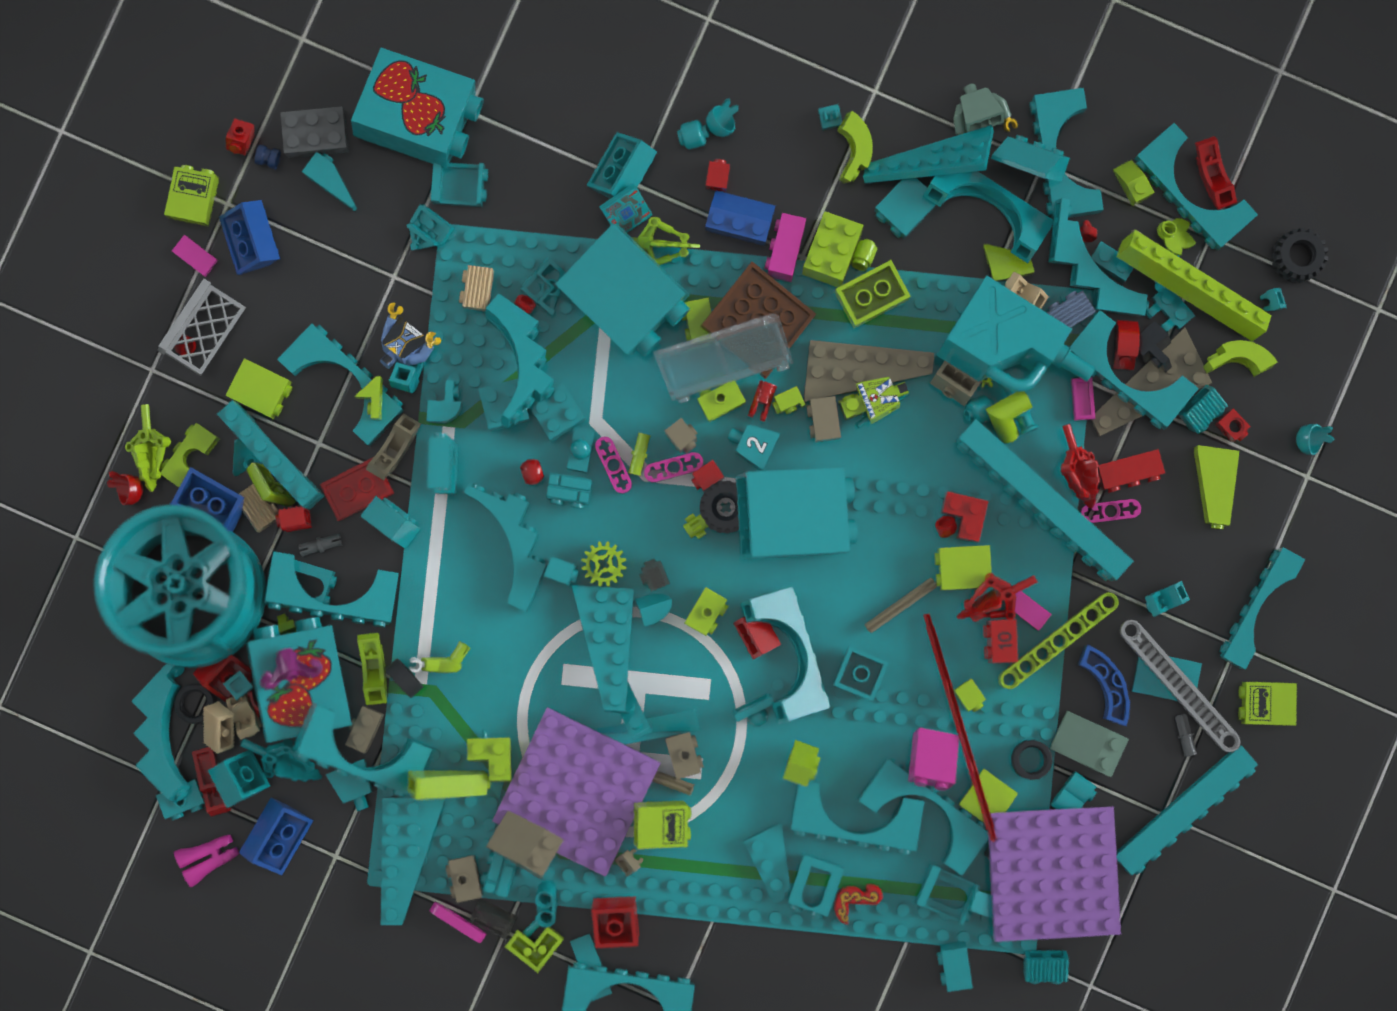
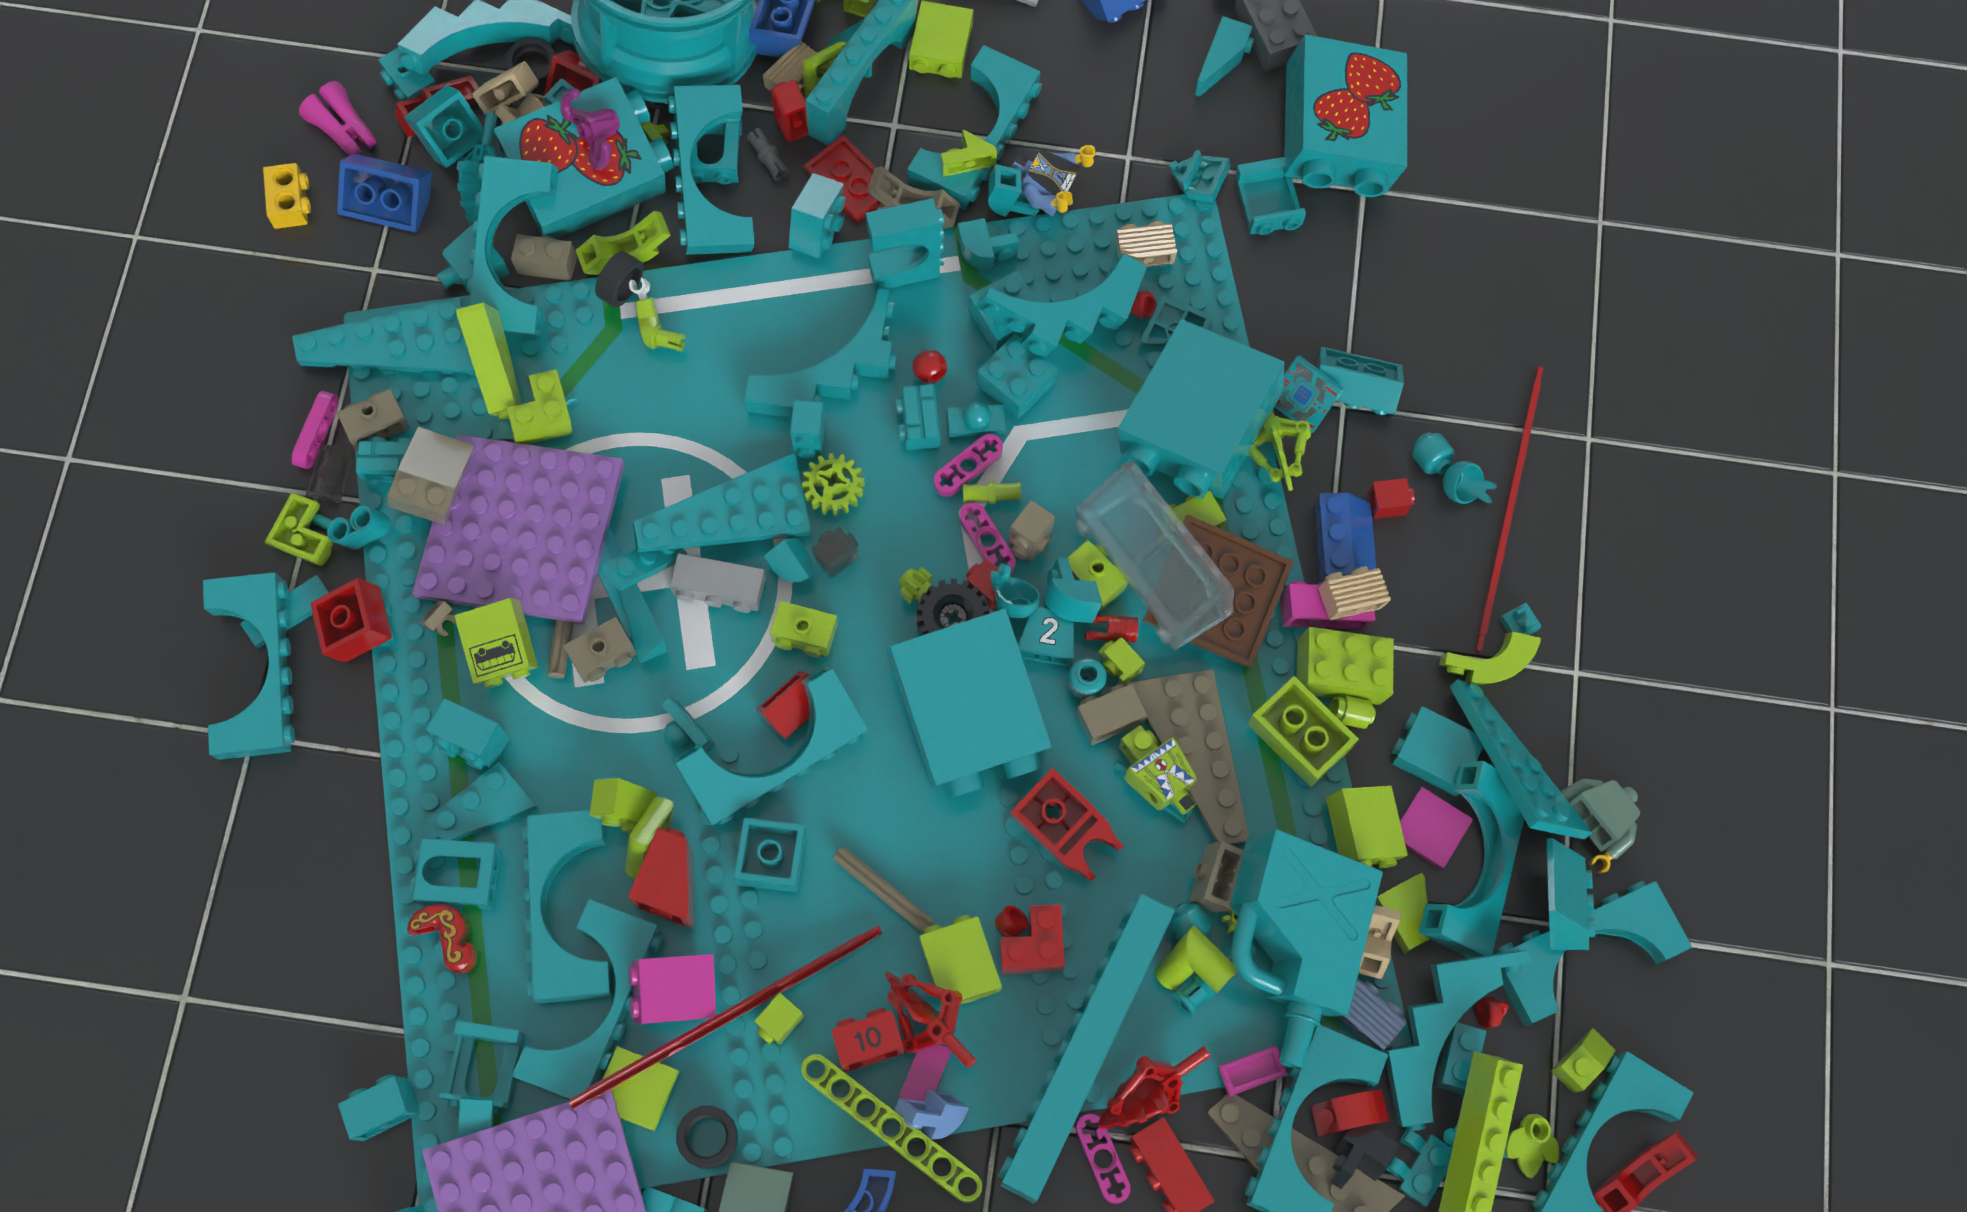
camera: 70 degrees right, 15 degrees down
(259, 915) = (282, 196): none -> yellow brick
(656, 663) = (718, 583): none -> light grey brick
(724, 858) = (467, 734): none -> teal brick
(726, 461) = (1013, 593): none -> teal piece
(738, 425) = (1069, 597): none -> teal brick
(777, 113) = (1500, 551): none -> red piece
(787, 228) = (1354, 593): none -> tan brick
(792, 421) = (1084, 671): none -> teal head
(826, 752) = (656, 816): none -> lime brick
(860, 746) = (666, 879): none -> red slope
(898, 471) = (1074, 829): none -> red brick
(947, 272) = (1367, 825): none -> lime brick
(955, 228) = (1433, 828): none -> dark pink tile
(1058, 610) = (936, 1115): none -> medium blue brick

